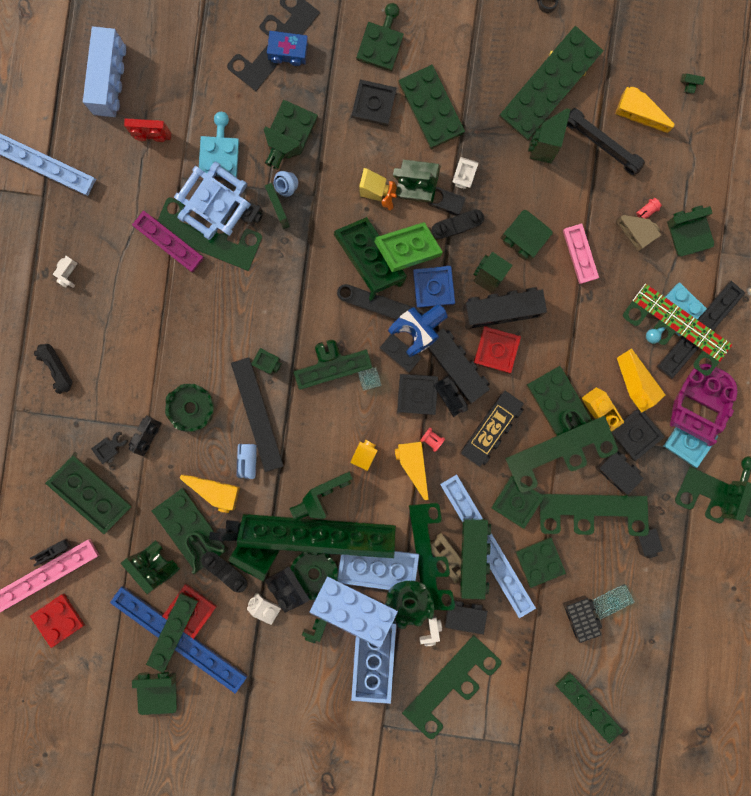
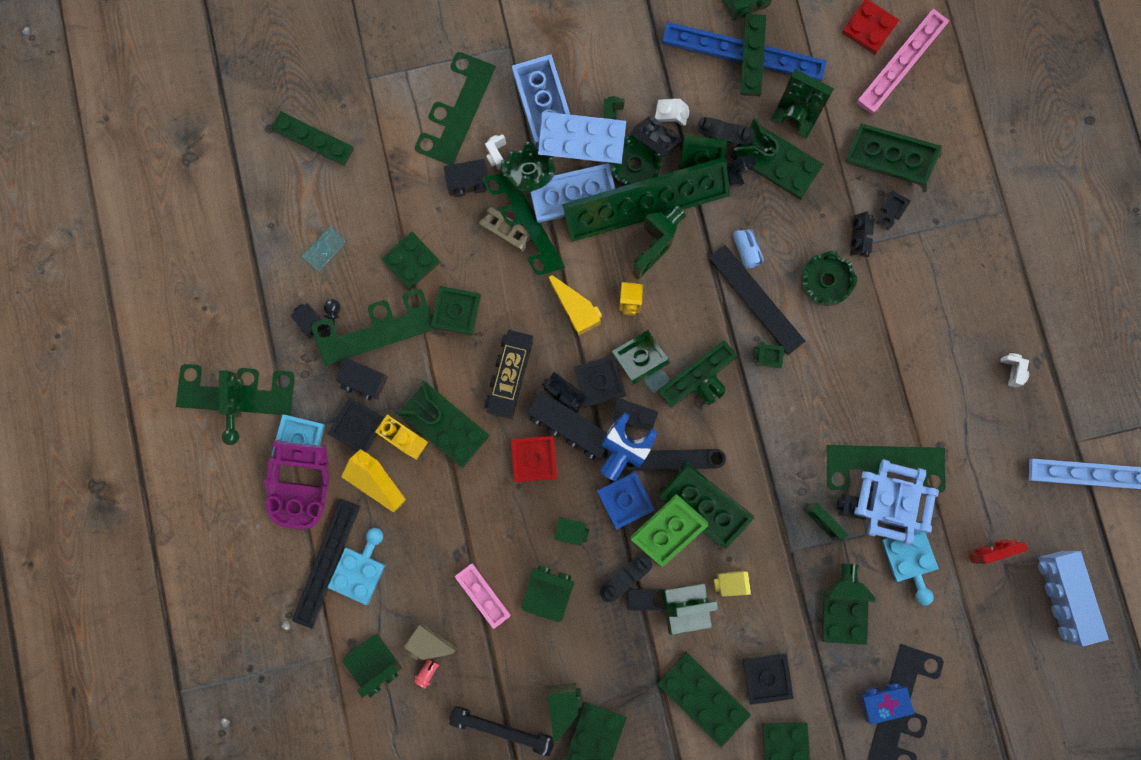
camera: 165 degrees right, 5 degrees down
(51, 552) = (905, 87): black piece -> none
(62, 380) = (991, 274): black piece -> none
(167, 241) = (924, 442): magenta plate -> none
(201, 613) = (731, 85): red plate -> none
(216, 493) = (766, 204): yellow slope -> none
(285, 183) = (826, 551): light blue cone -> none
(375, 400) = (641, 357): none -> plate
(387, 201) = (710, 573): orange piece -> none
(432, 439) = (573, 338): coral bush -> none
(465, 173) = (639, 636): white bracket -> none
(474, 558) = (480, 236): dark green brick -> none
(498, 563) = (471, 256): light blue plate -> none
(505, 308) = (542, 502): black brick -> none
(561, 445) = (430, 382): dark green piece -> none
(582, 618) = (349, 219): black brick -> none
(624, 544) = (331, 308): none -> black bar
(678, 320) = (353, 561): piece -> none

